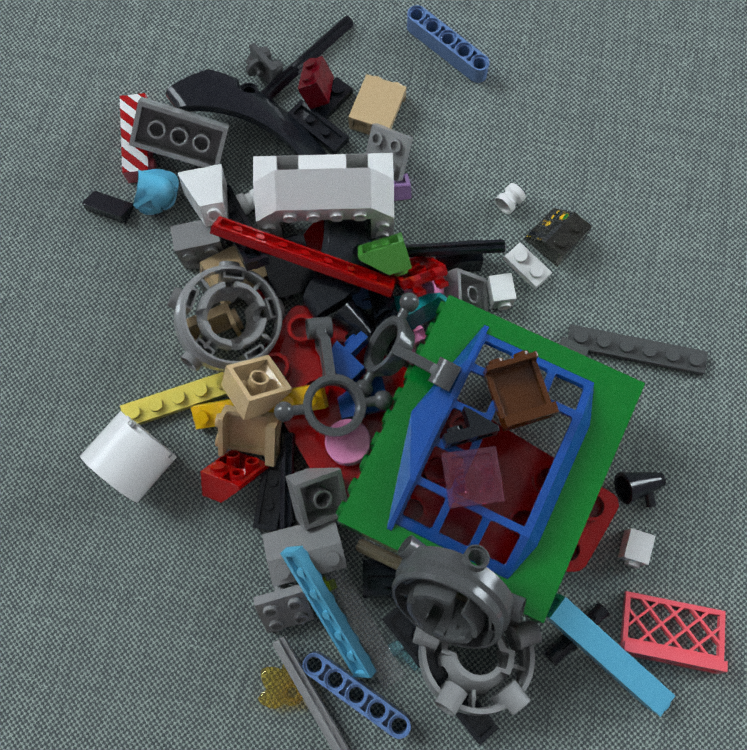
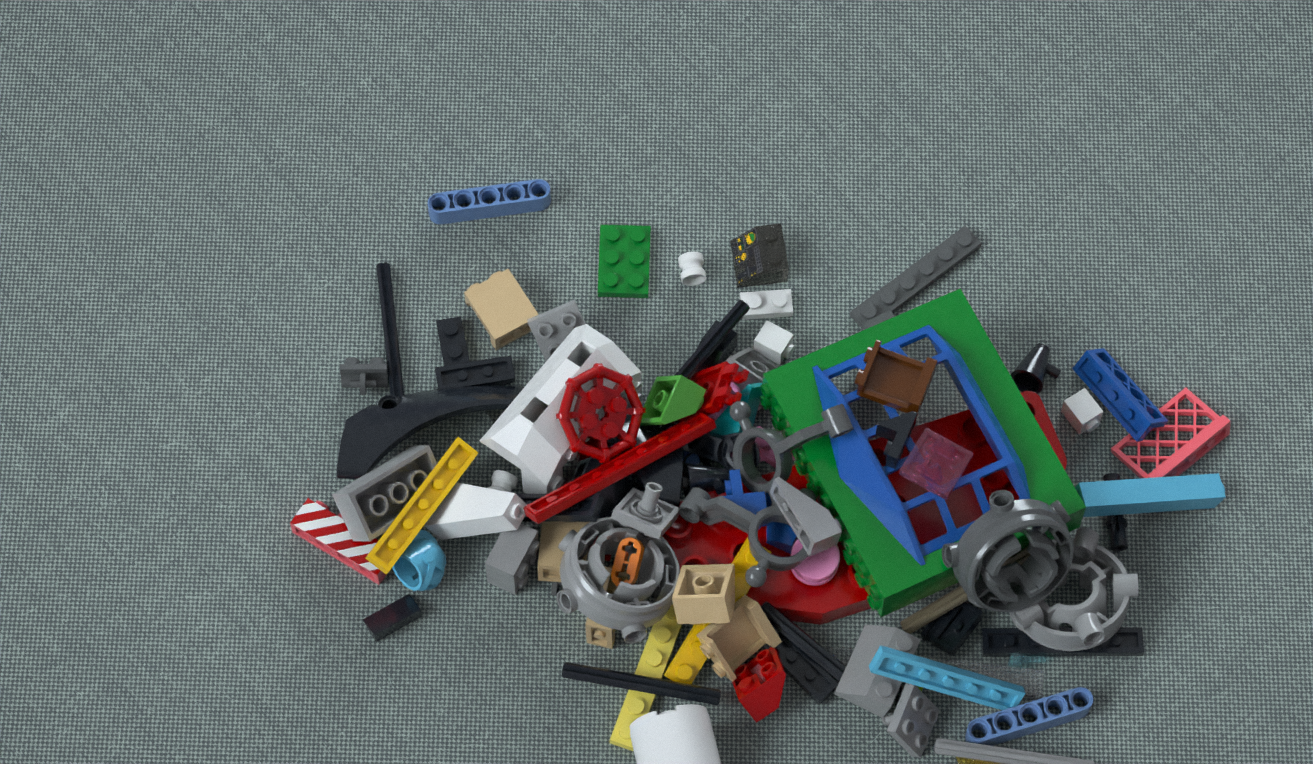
camera: 55 degrees left, 10 degrees down
(171, 396) = (641, 683): none -> black axle
(182, 157) = (421, 505): none -> yellow plate
(236, 313) = (621, 561): none -> orange beam
(283, 299) = (646, 511): none -> light grey plate
(315, 82) = (434, 341): dark red brick -> none
(316, 495) = (839, 621): light grey slope -> none
(333, 197) = (614, 413): none -> red plate
(359, 417) = (807, 518): none -> light grey slope
(479, 154) = (624, 261): none -> green plate
(672, 565) = (1119, 393): none -> blue fence

